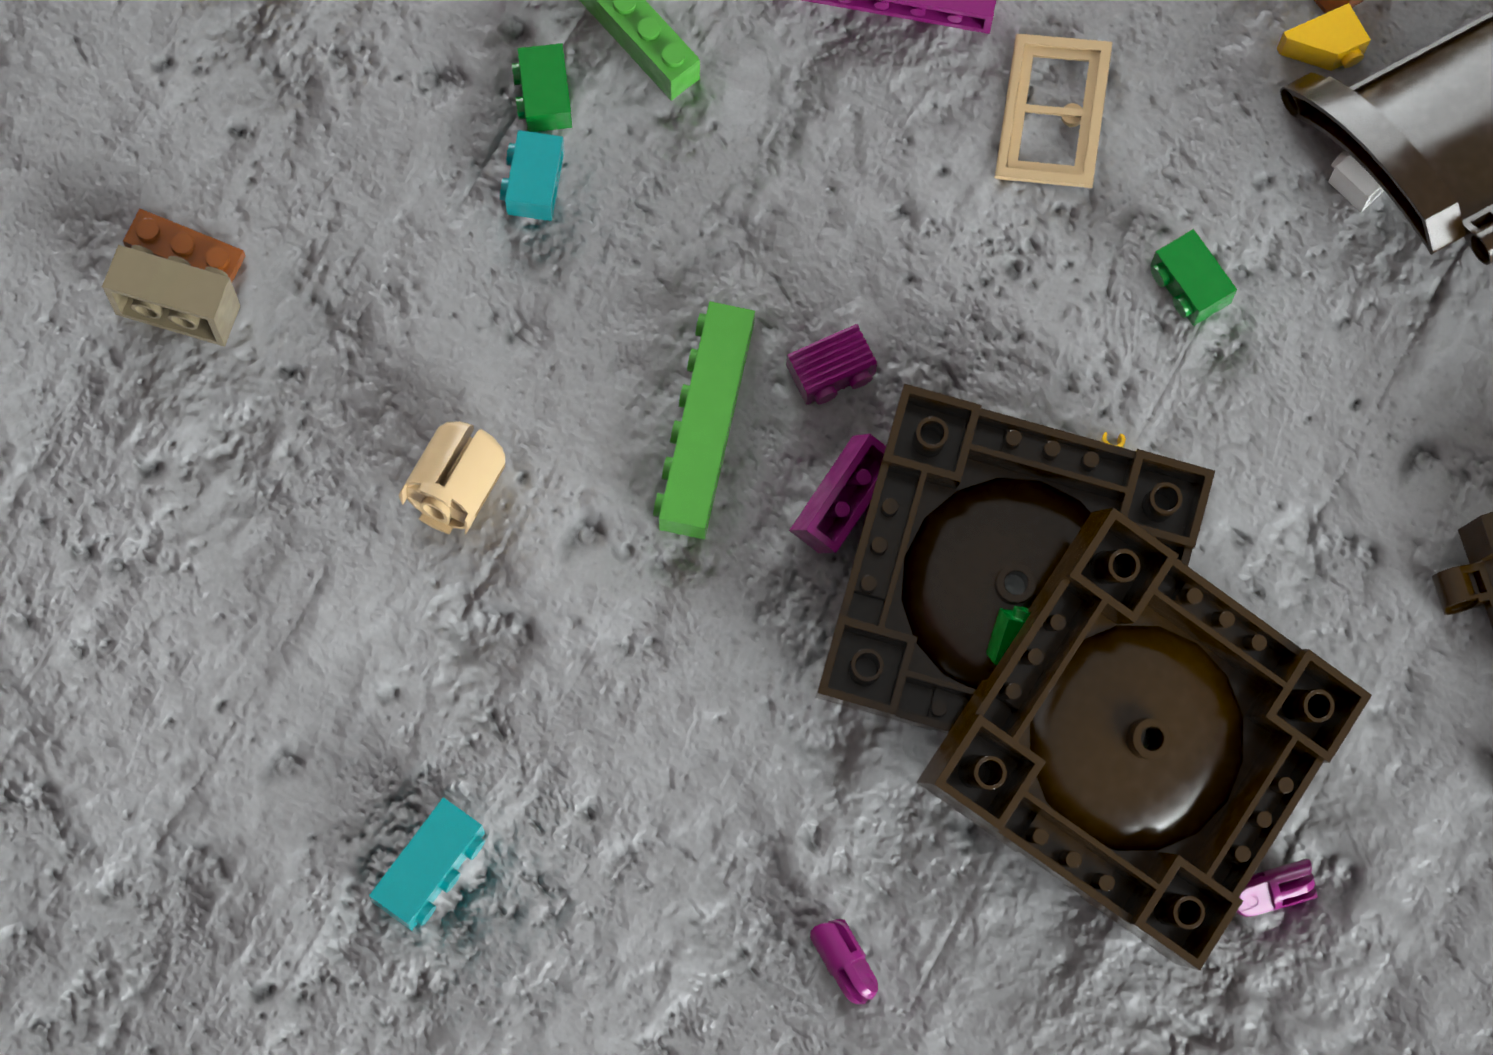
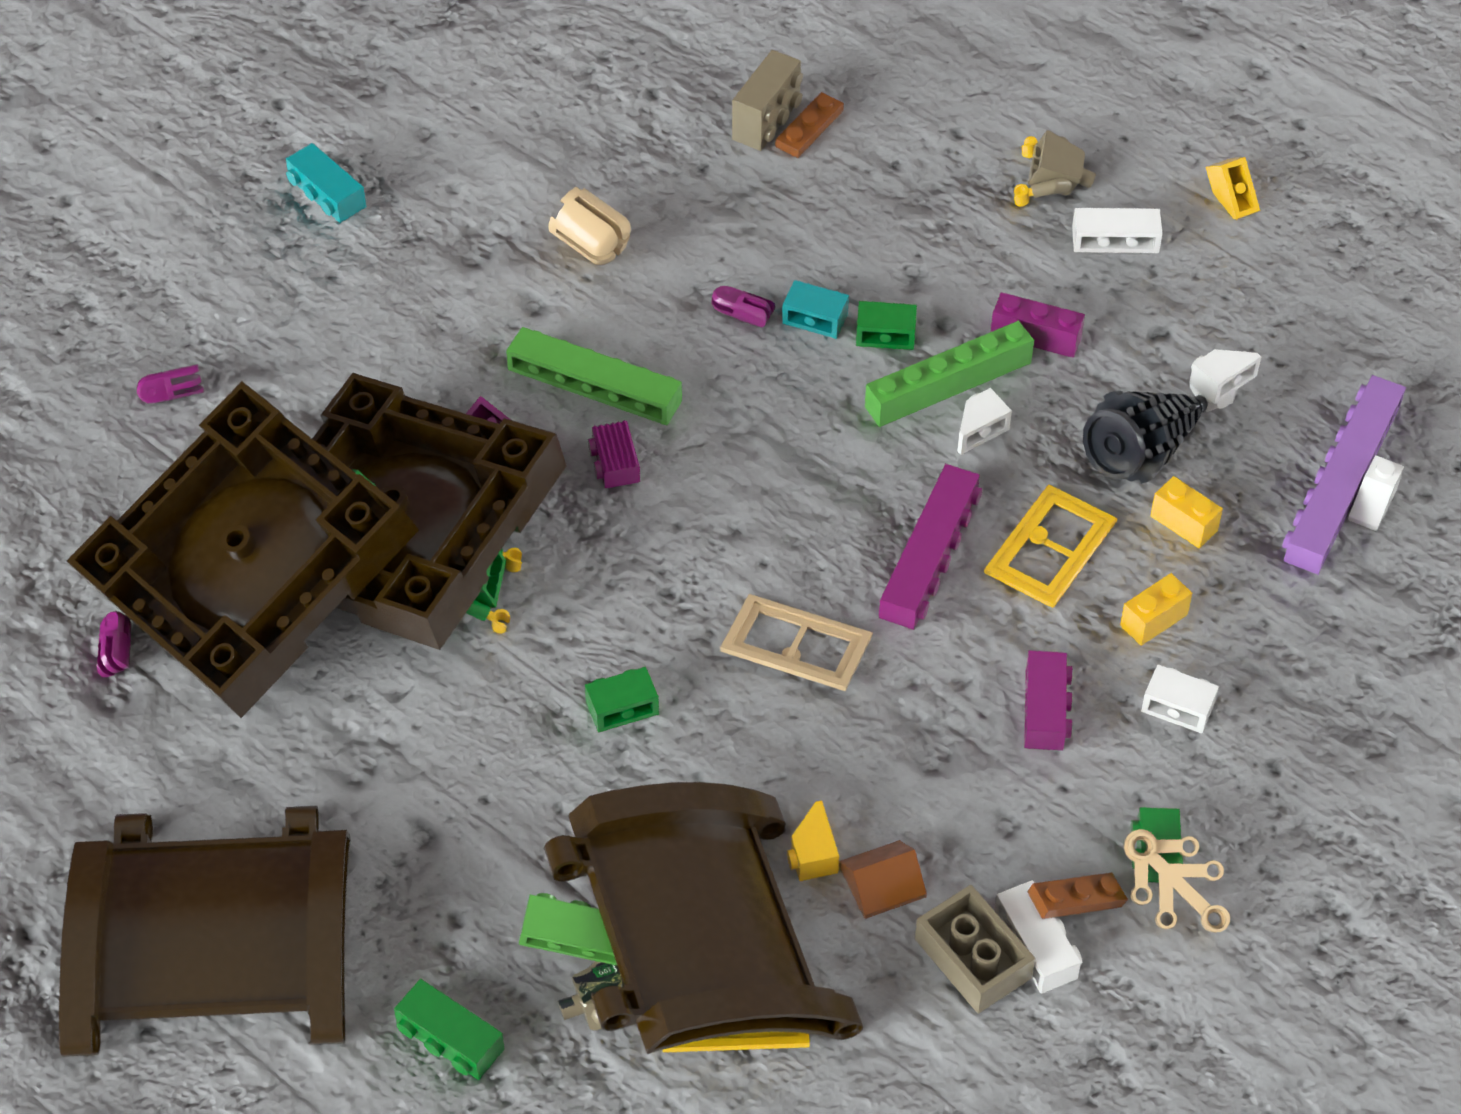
camera: 105 degrees right, 20 degrees down
(546, 265) = (742, 305): none -> magenta arm

